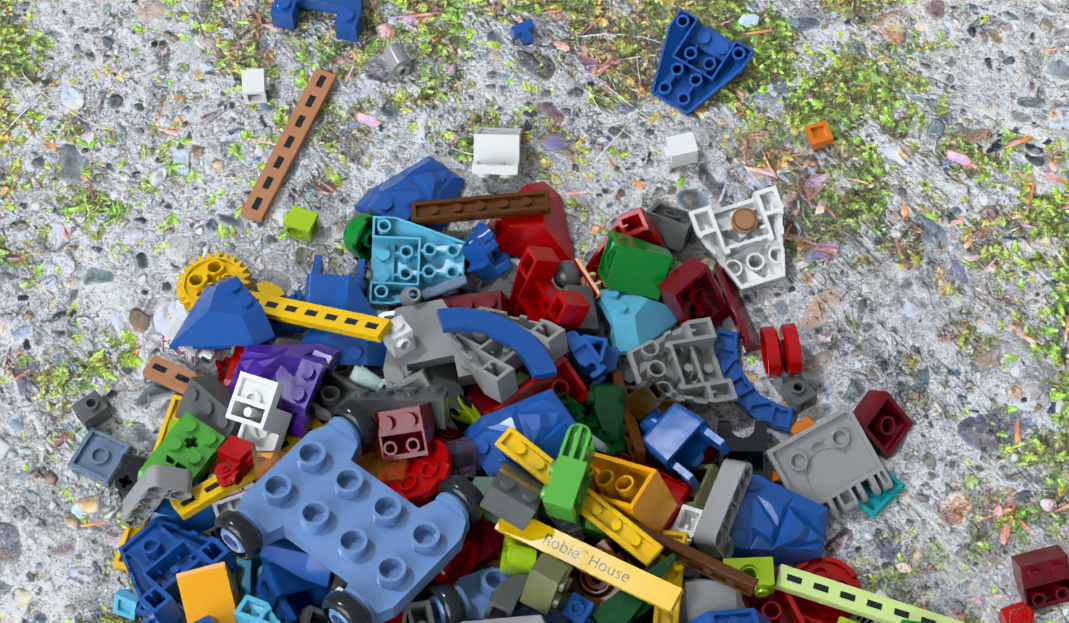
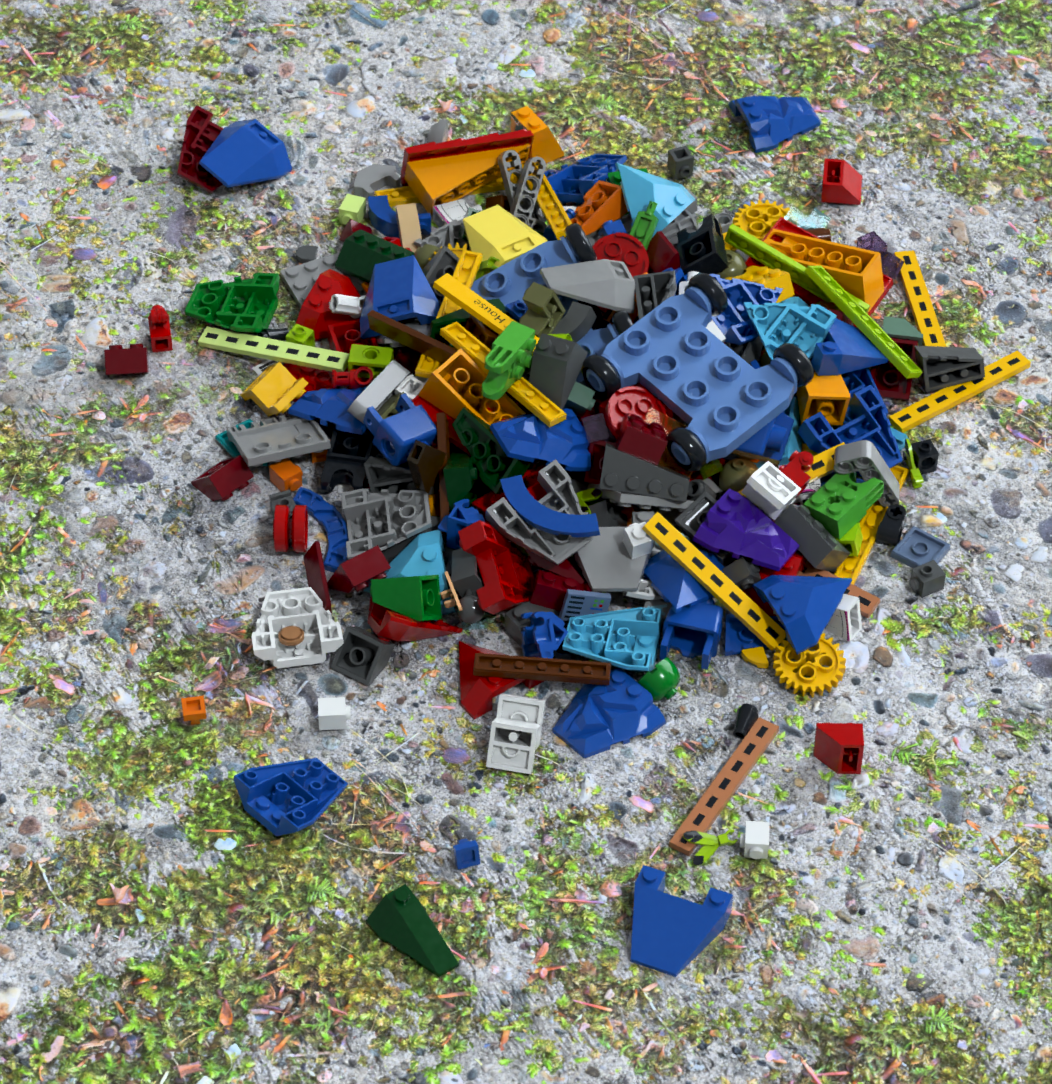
camera: 175 degrees left, 15 degrees down
(96, 576) = (925, 456): none -> black brick
(106, 558) = (914, 473): none -> lime piece
(177, 182) = (840, 746): none -> red slope
(274, 213) = (745, 719): none -> black cone
(301, 77) = (709, 842): none -> lime piece
(301, 223) = (719, 705): lime brick -> none
(397, 59) = (603, 845): light grey brick -> none
(405, 298) = (620, 597): light grey cone -> none
(764, 549) = (350, 378): none -> red connector
(854, 541) = (275, 389): none -> yellow bracket

